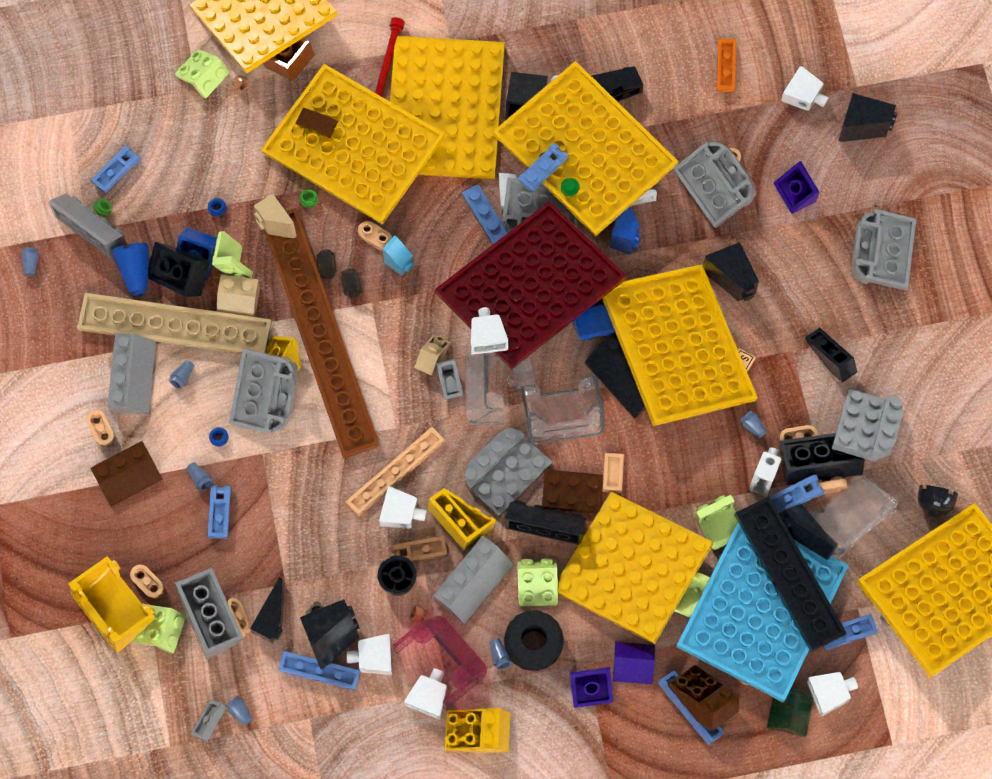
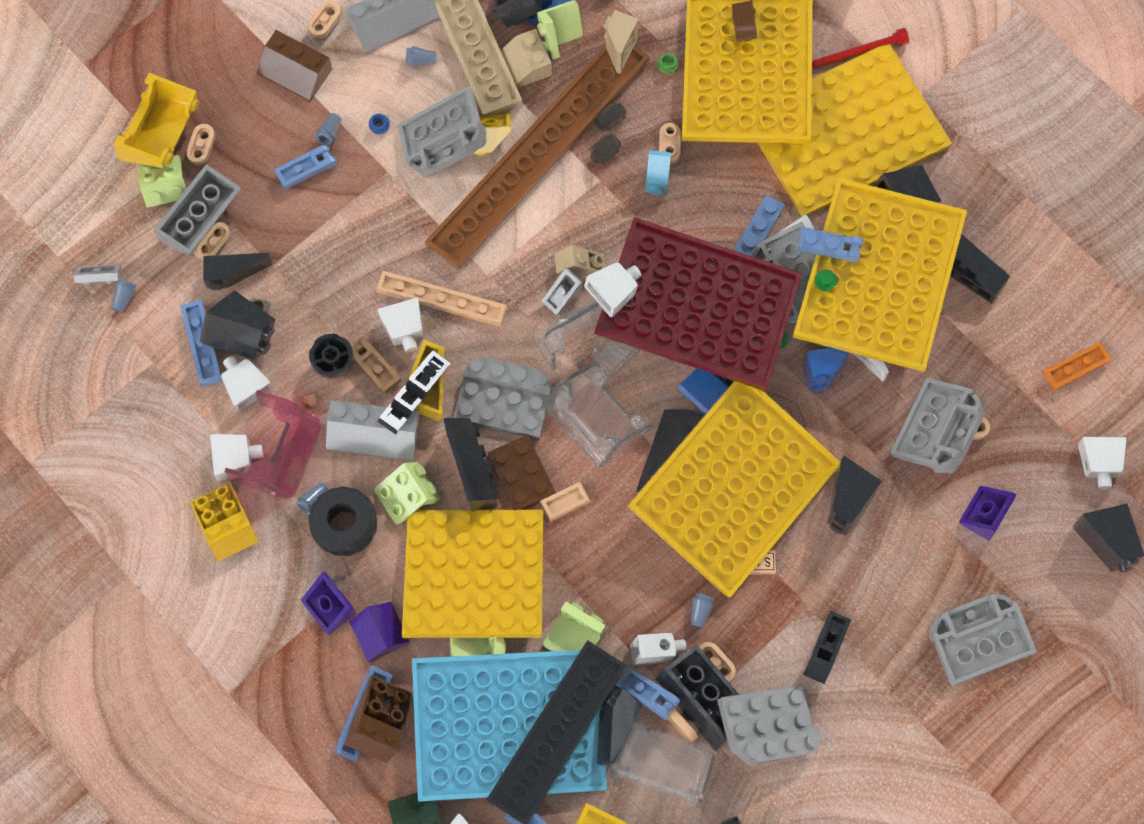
camera: 60 degrees right, 0 degrees up
(469, 528) = (413, 392): none -> slope

